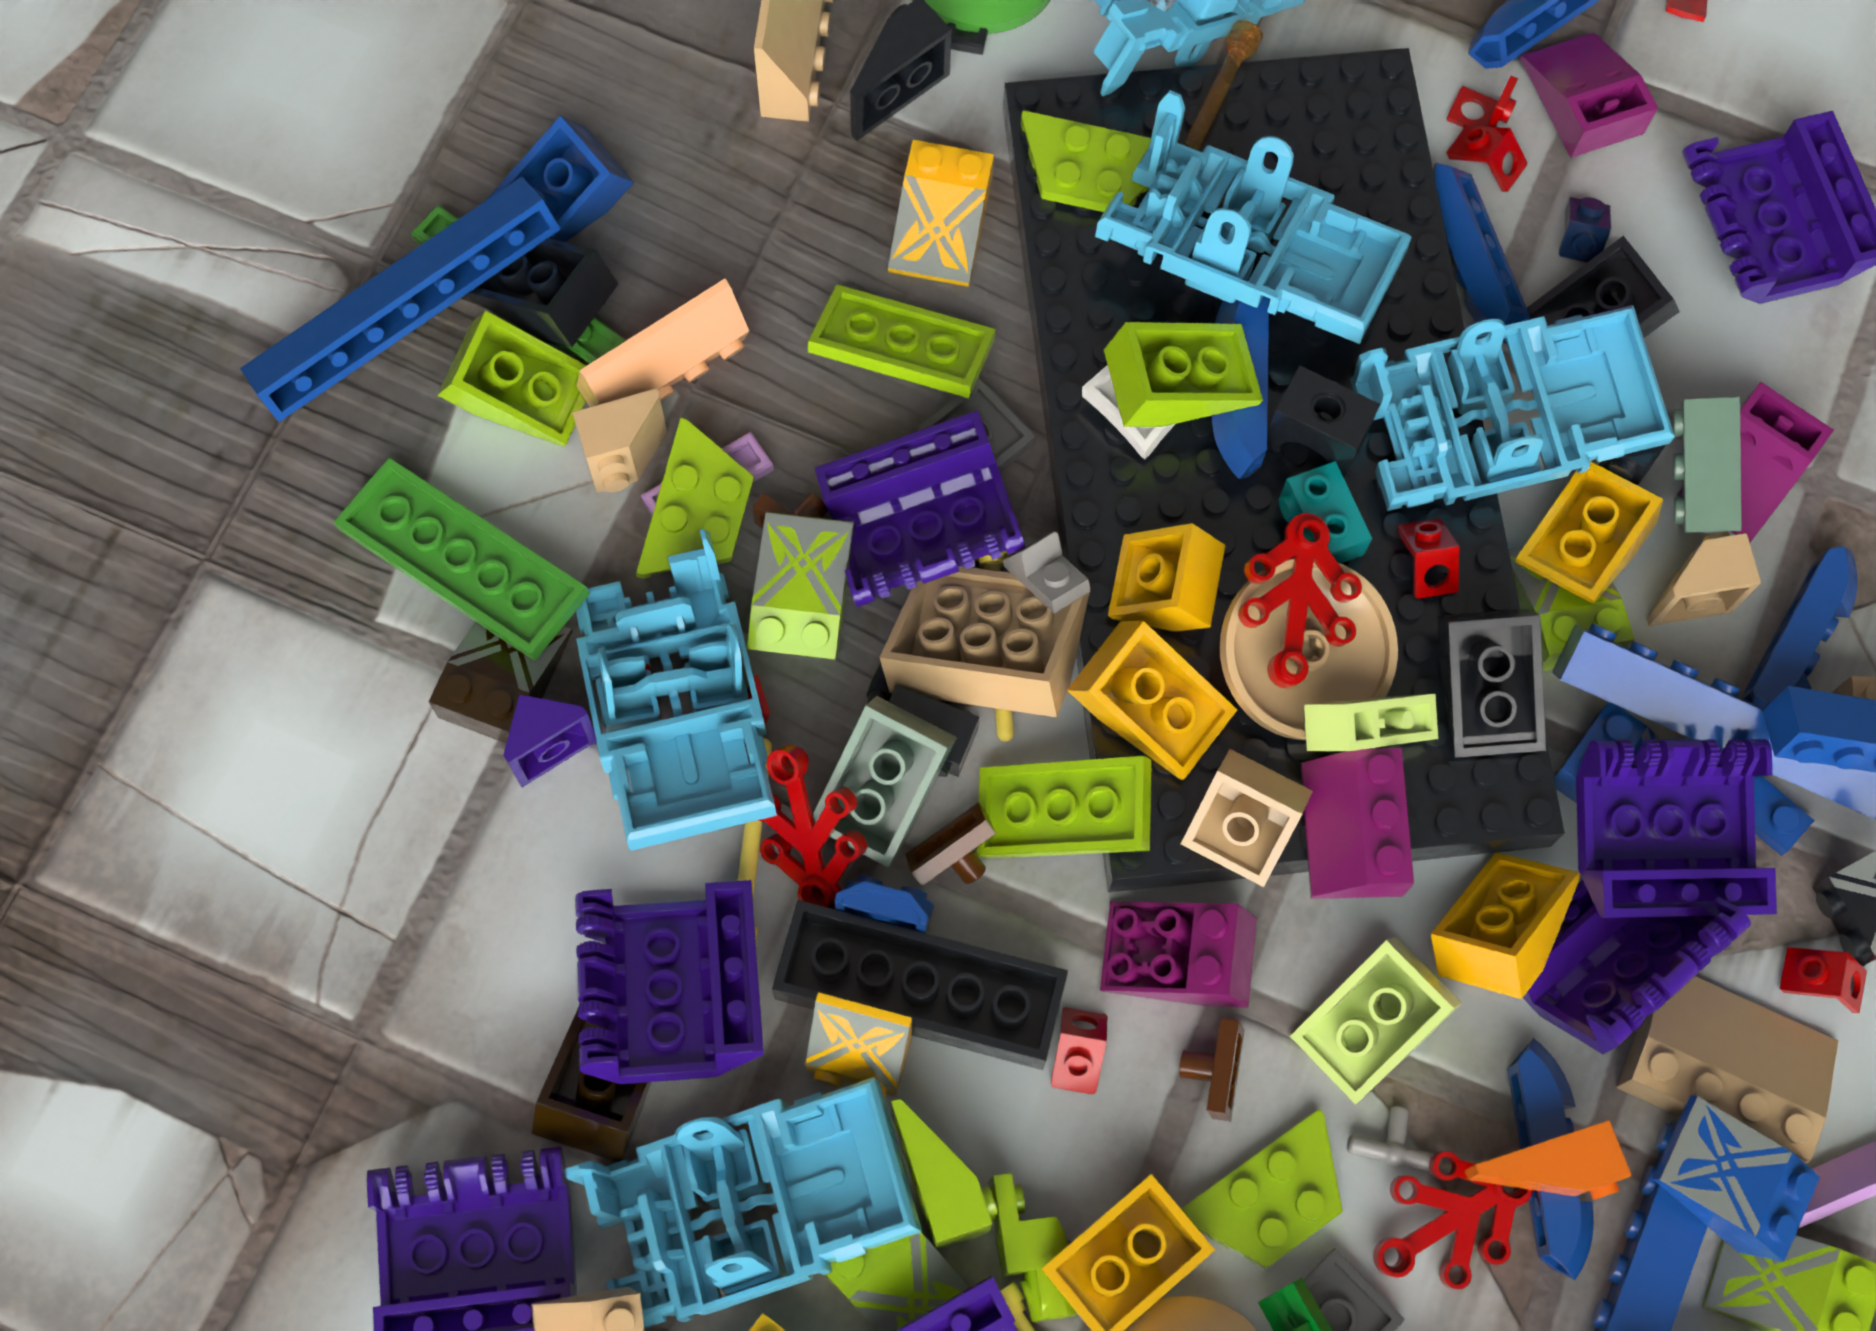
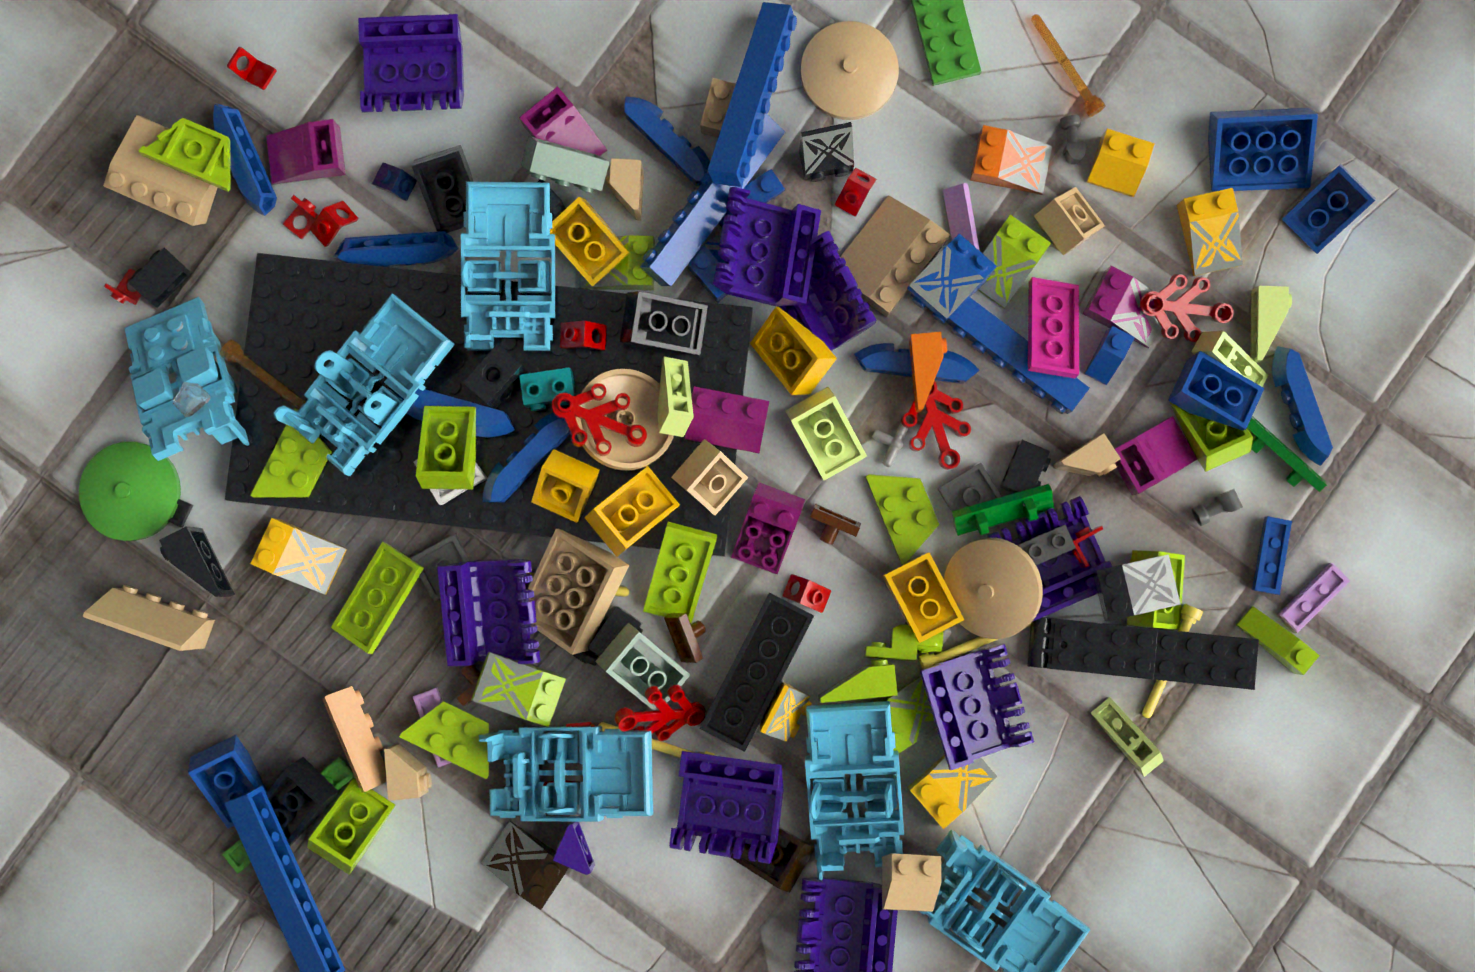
camera: 70 degrees left, 15 degrees up
(462, 558) = (455, 877): bright green plate -> none
(886, 904) = (707, 688): blue slope -> none
(1048, 573) = (545, 549): light grey slope -> none
(1181, 500) = (506, 480): none -> blue brick

